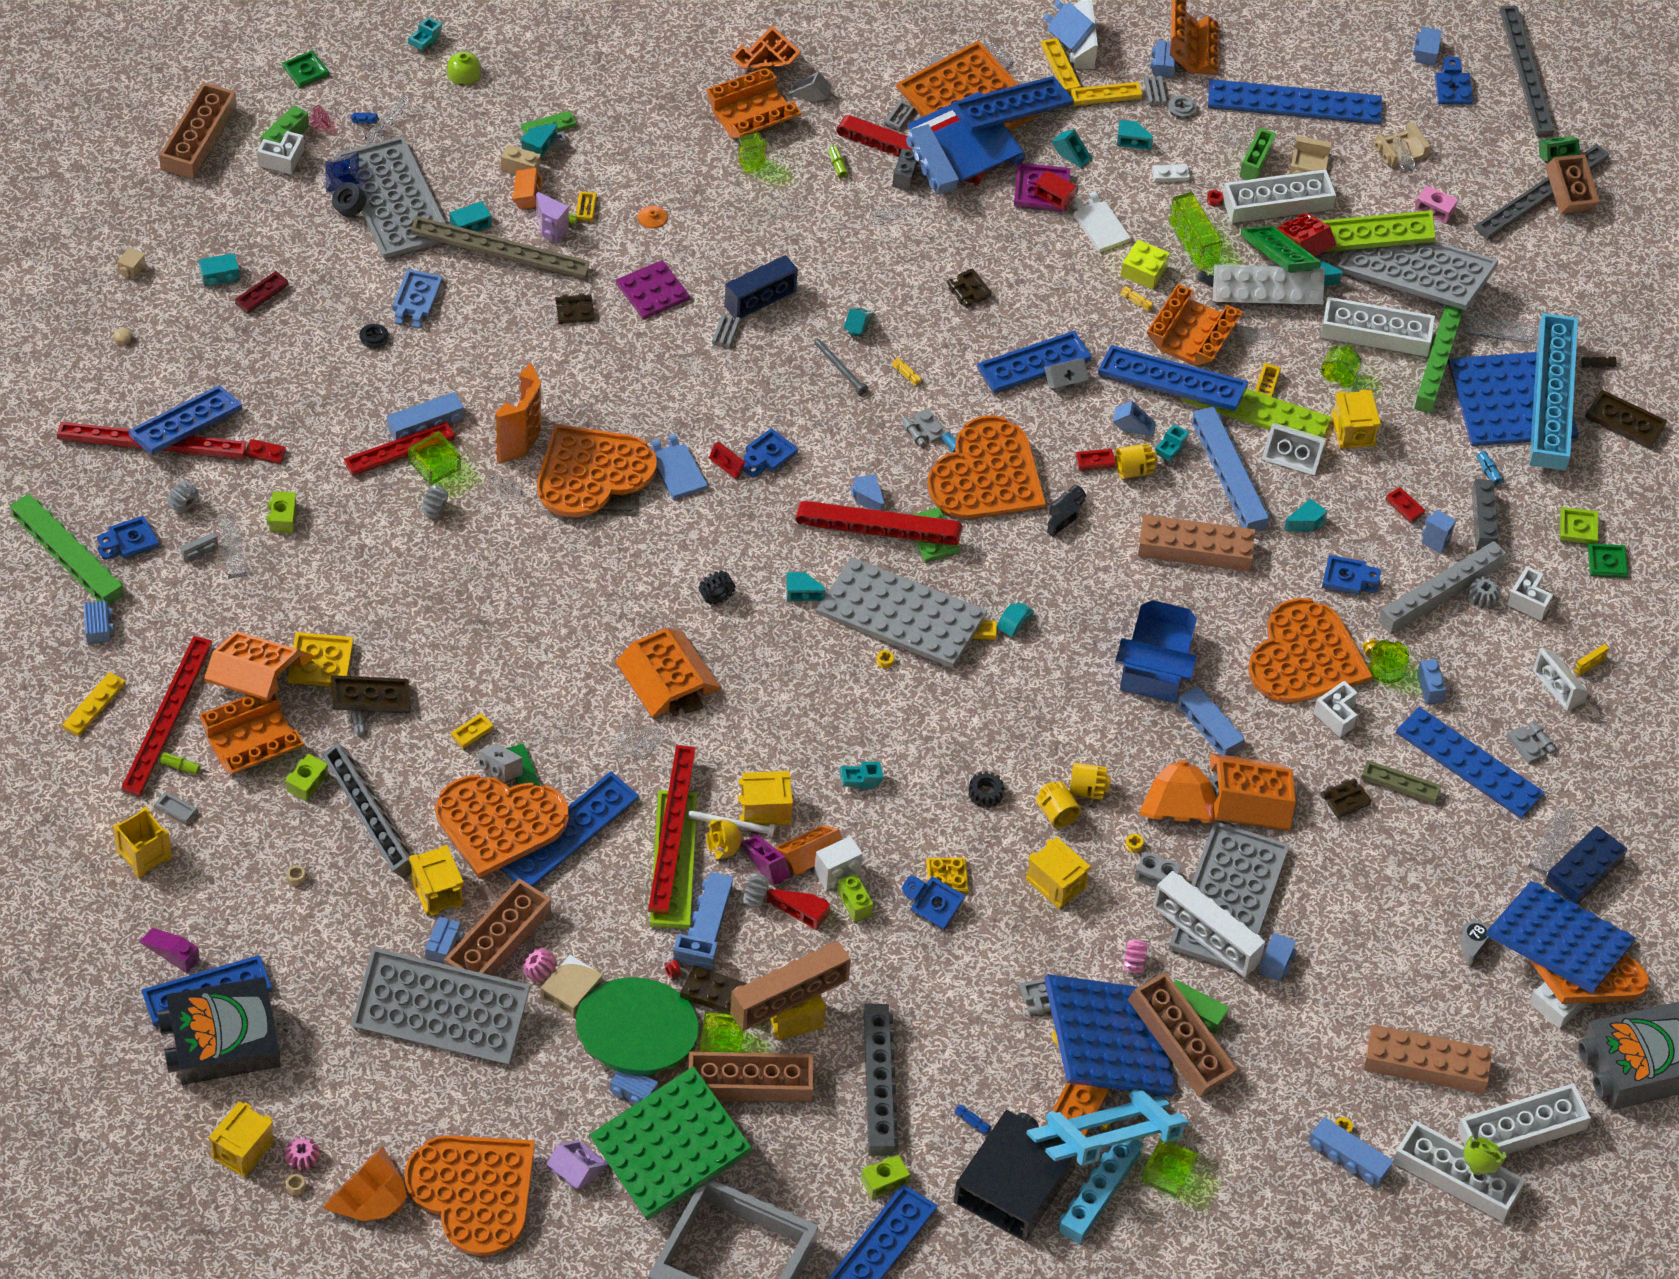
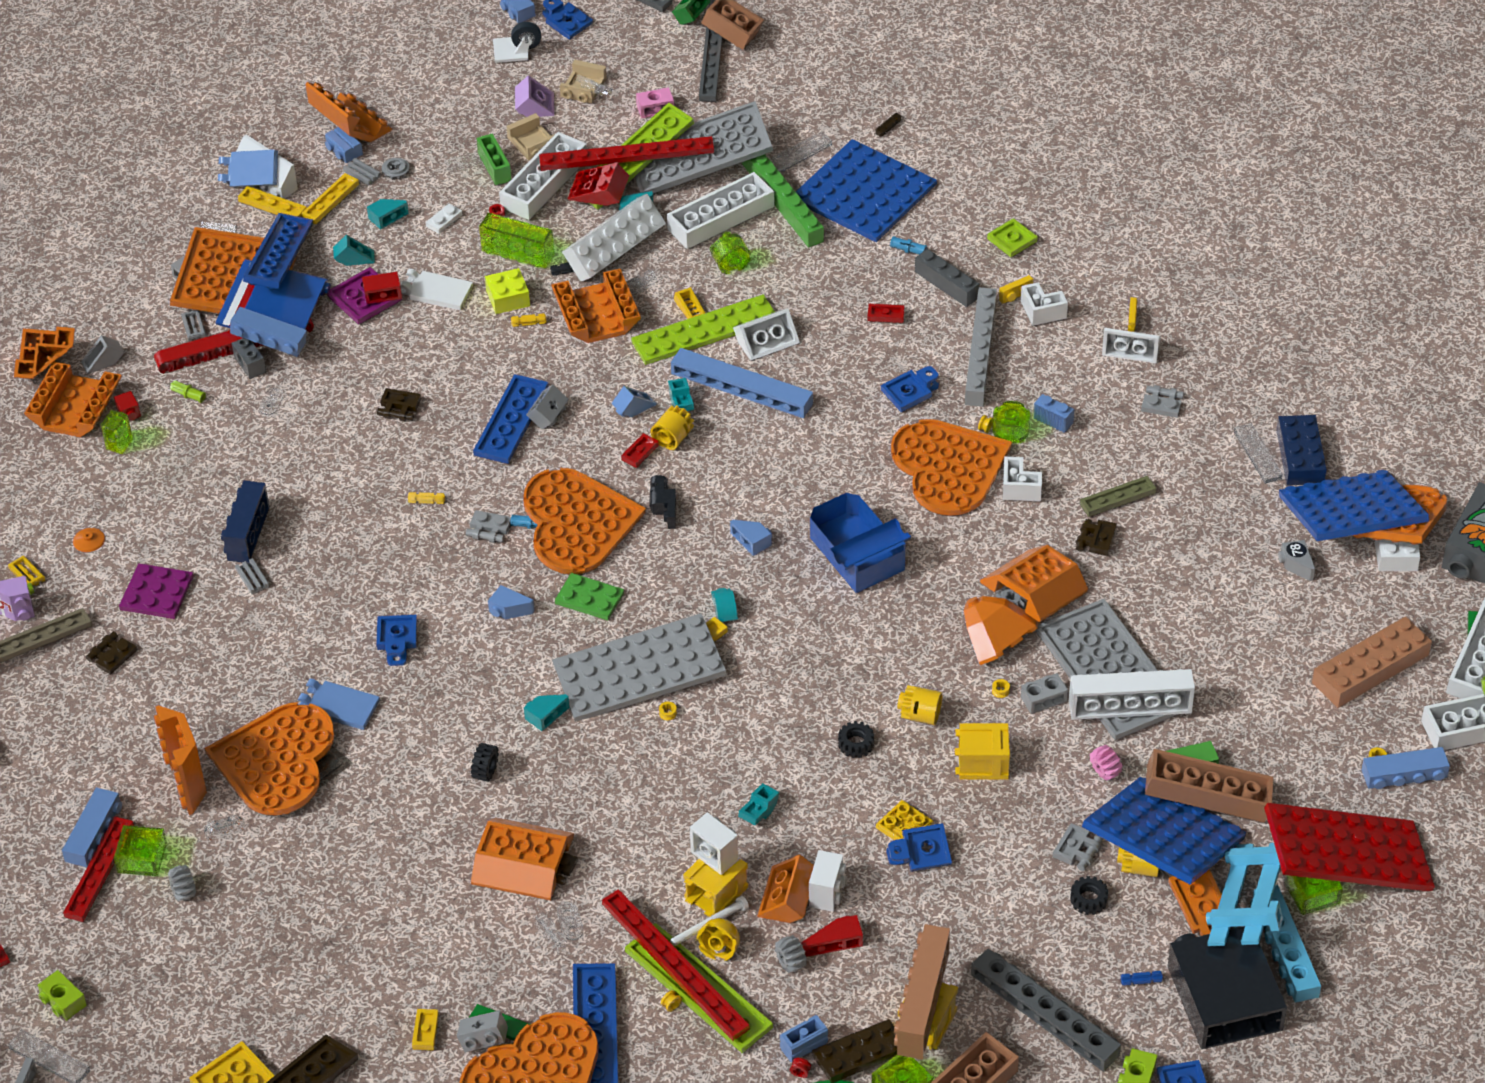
camera: 40 degrees left, 5 degrees down
(645, 851) = (671, 1000): none -> yellow bush
(711, 907) = (772, 996): medium blue brick -> none
(727, 460) = (372, 666): red plate -> none
(767, 859) = (767, 925): magenta slope -> none
(779, 767) = (714, 843): none -> white brick
(783, 140) = (127, 404): none -> red brick
(855, 898) = (865, 896): lime brick -> none
(857, 320) = (347, 490): teal slope -> none
(861, 388) = (407, 536): dark grey bar -> none
(879, 523) = (545, 617): red beam -> none
(1008, 1024) = (1089, 905): none -> black tyre
(1089, 781) = (921, 669): yellow gear -> none
(1096, 587) = (751, 535): none -> medium blue slope
(1173, 378) = (626, 351): blue plate -> none
(1196, 543) = (783, 449): nougat brick -> none
(1211, 722) = (947, 561): medium blue brick -> none
(1222, 1163) = (1348, 847): none -> red plate
(1277, 956) = (1203, 685): medium blue brick -> none
(1280, 248) = (596, 205): green plate -> none
(1294, 101) = (465, 110): blue plate -> none
(1306, 518) = (834, 372): teal slope -> none
(1348, 131) = (533, 98): none -> lavender slope
(1354, 226) = (626, 153): none -> red plate
(1355, 419) = (786, 280): yellow container -> none
(1386, 77) = (515, 48): none -> plate
(1438, 531) = (934, 310): medium blue brick -> none
(1470, 762) = (1141, 446): blue plate -> none
(1484, 592) = (1010, 327): light grey gear -> none
(1518, 564) = (1013, 290): none -> yellow plate
(1553, 392) = (893, 161): medium azure brick -> none
(1607, 560) = (1057, 246): green tile -> none
(1626, 419) = (953, 146): dark brown plate -> none

